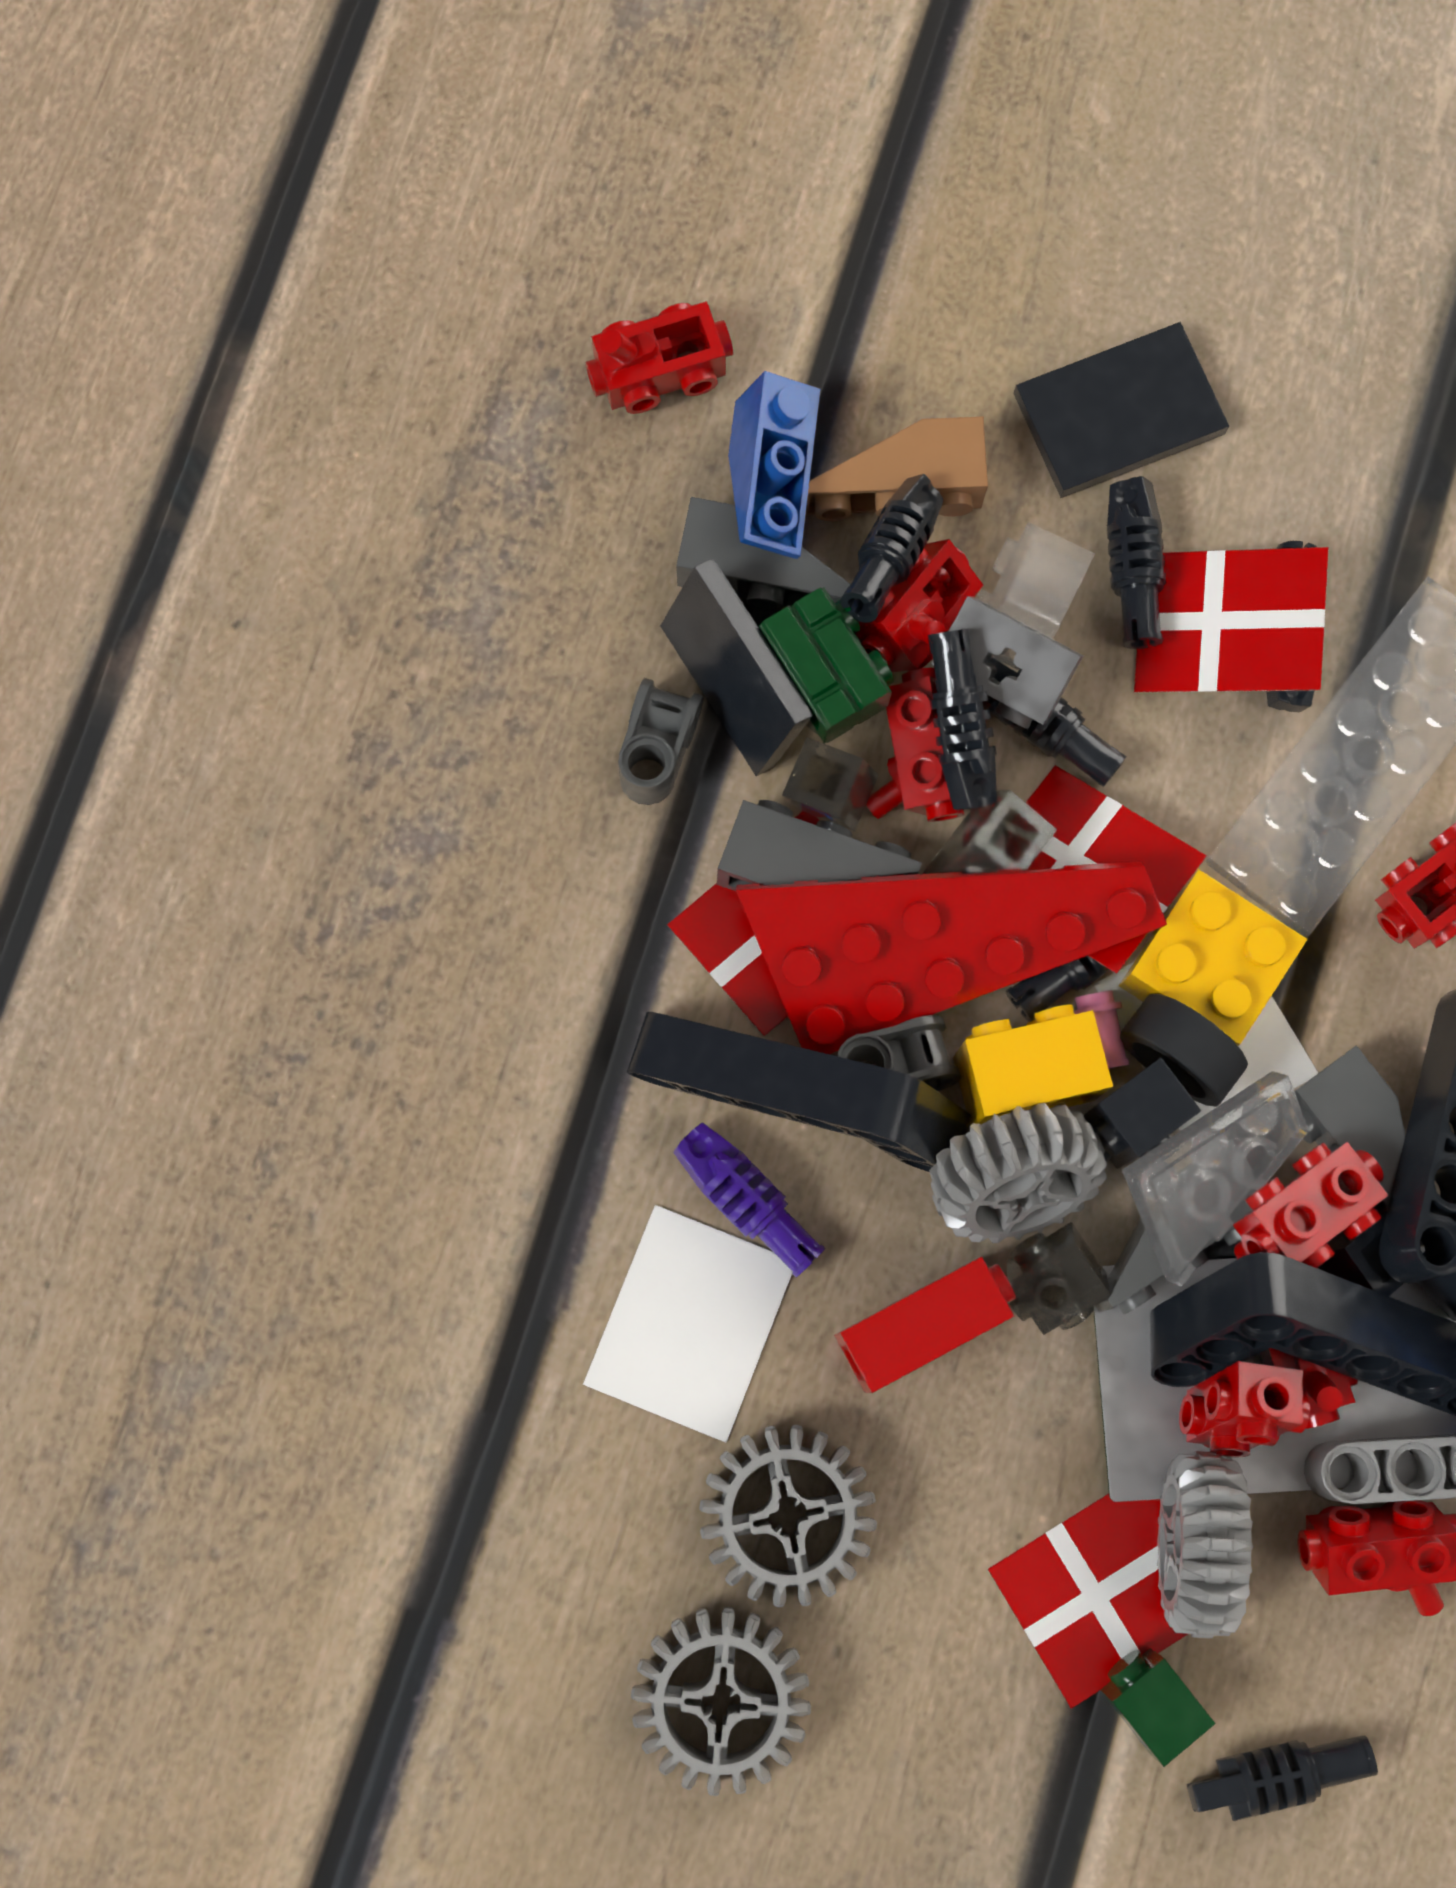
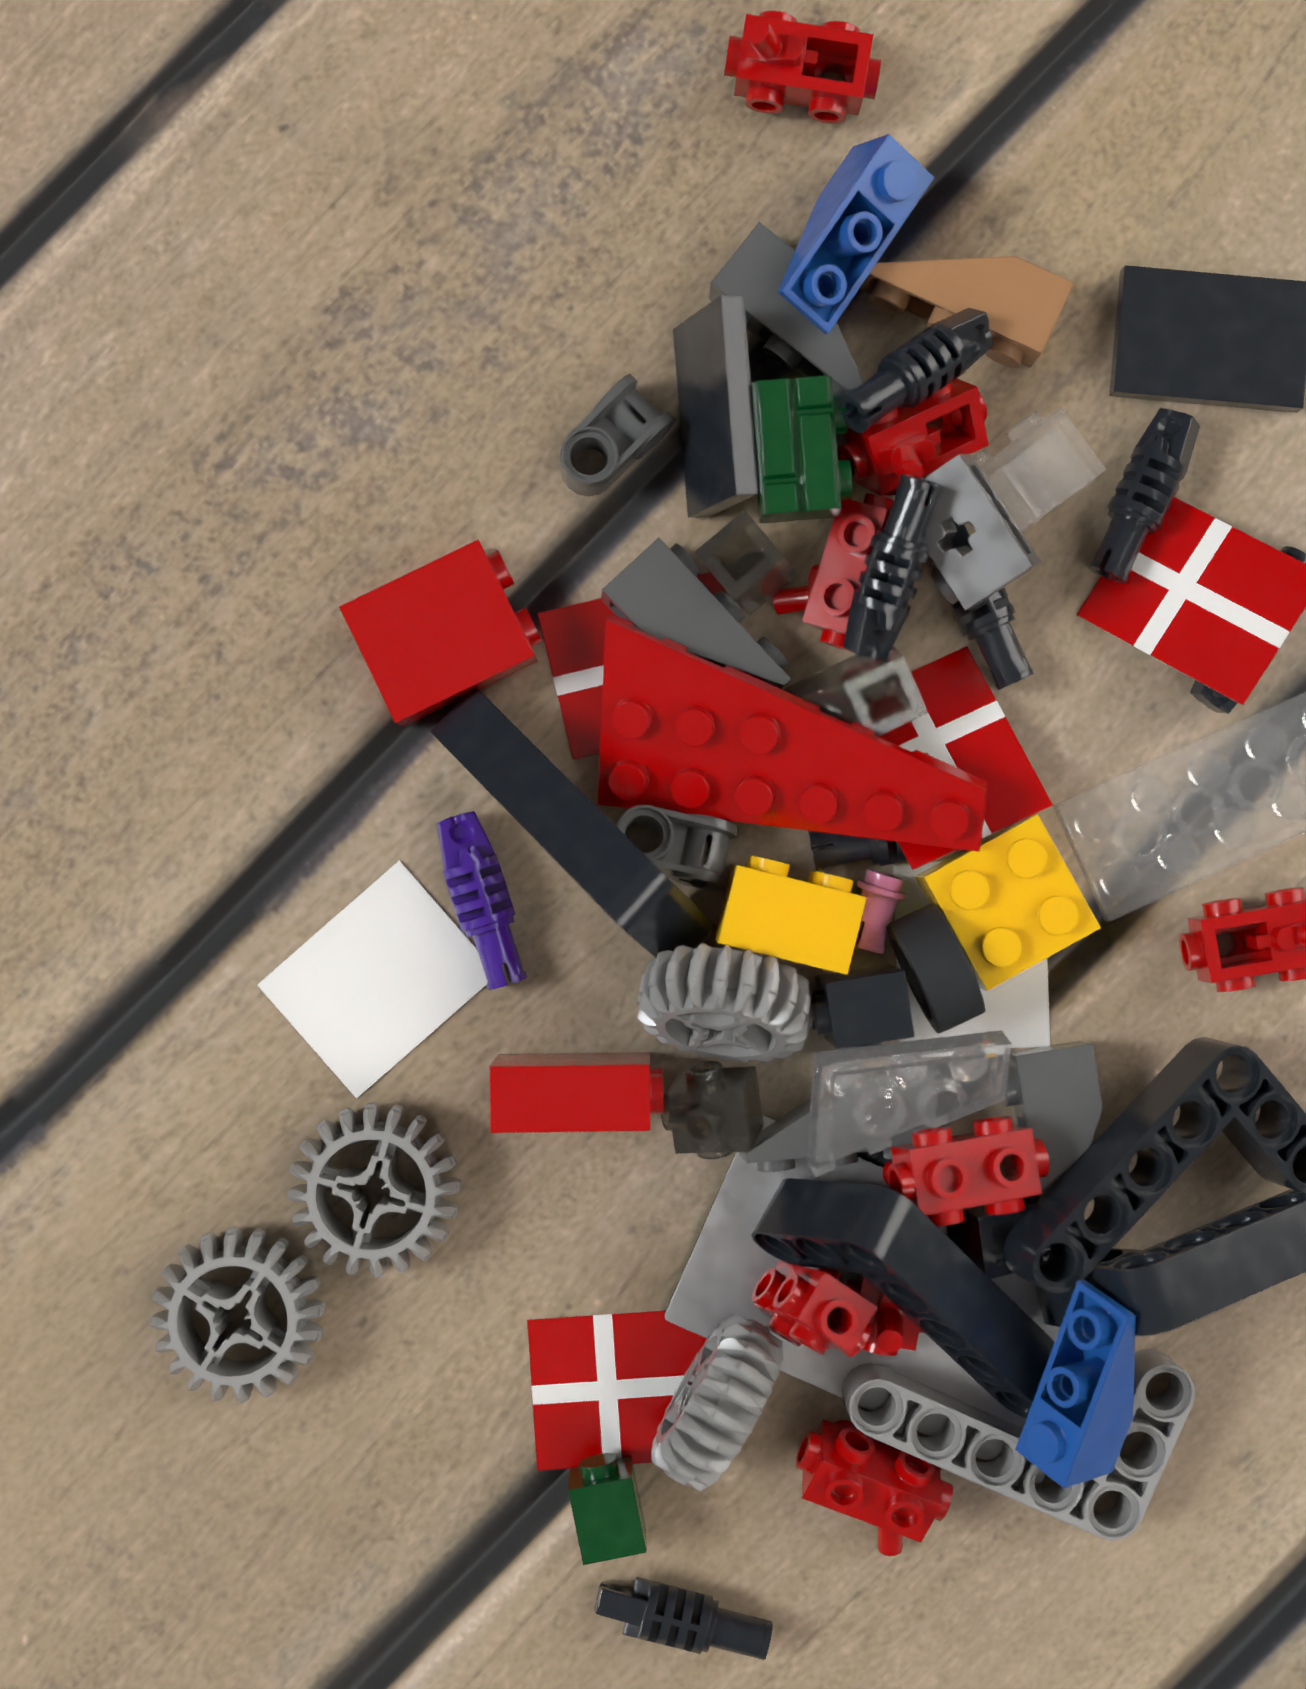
camera: 30 degrees right, 10 degrees up
(593, 979) = (441, 632): none -> red brick

